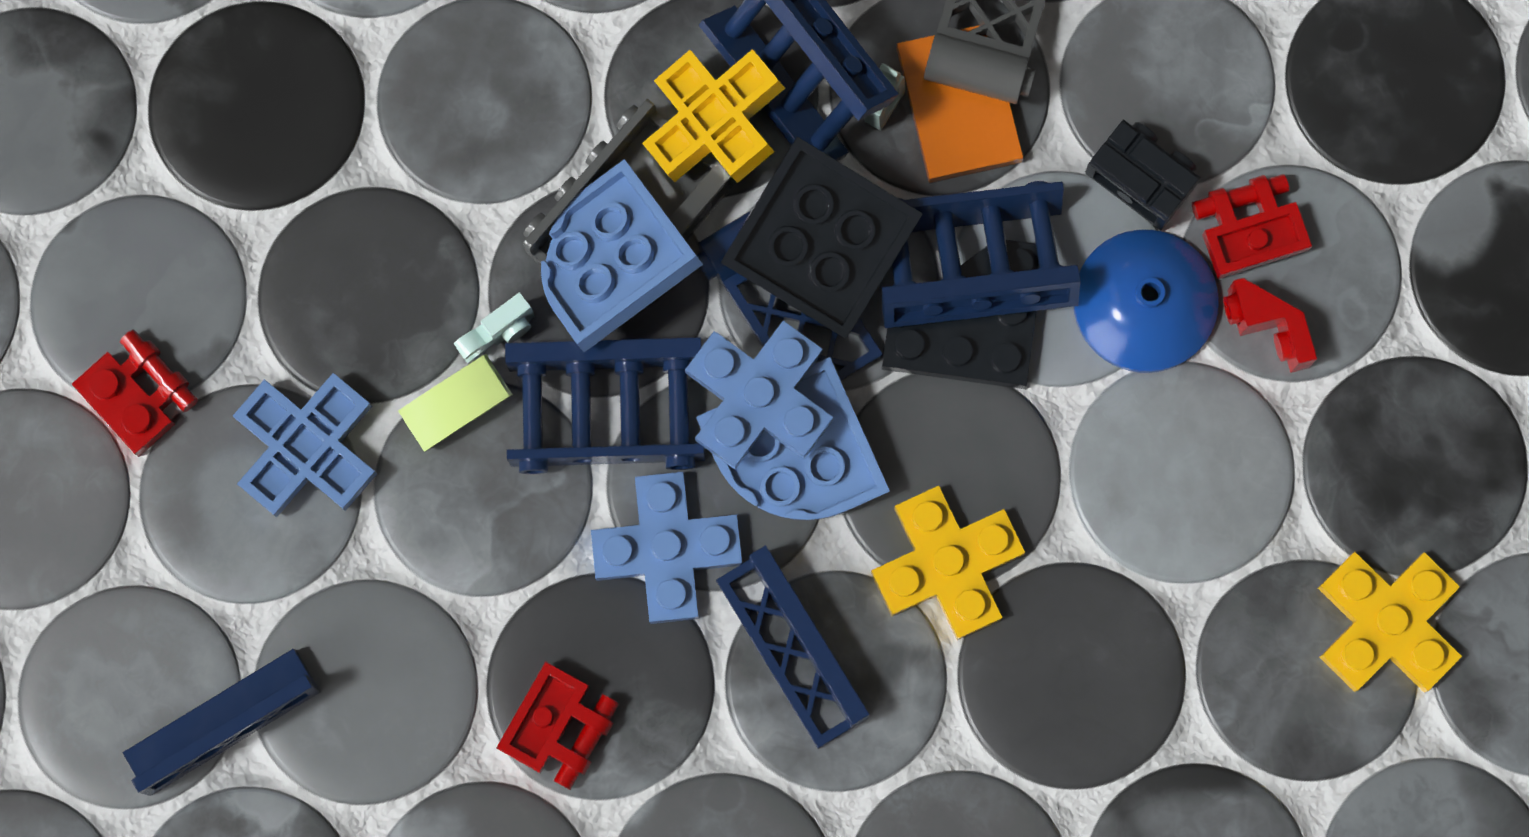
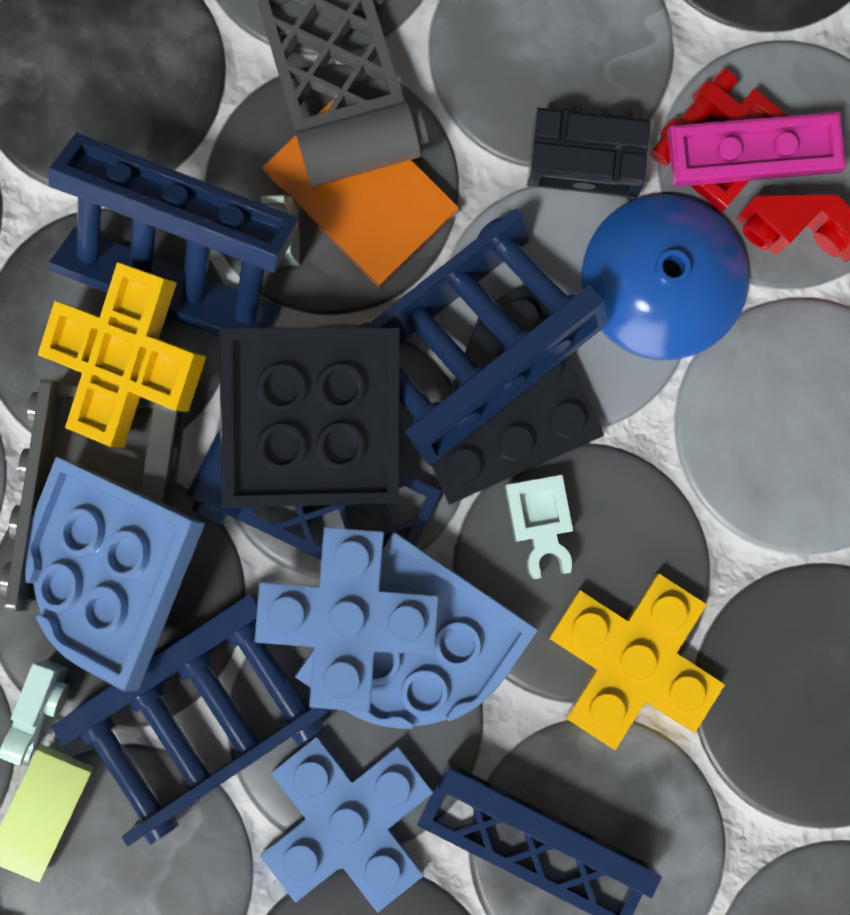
camera: 40 degrees left, 5 degrees up
(943, 415) = (540, 513): none -> light aqua plate
(1267, 245) = (756, 149): none -> dark pink tile

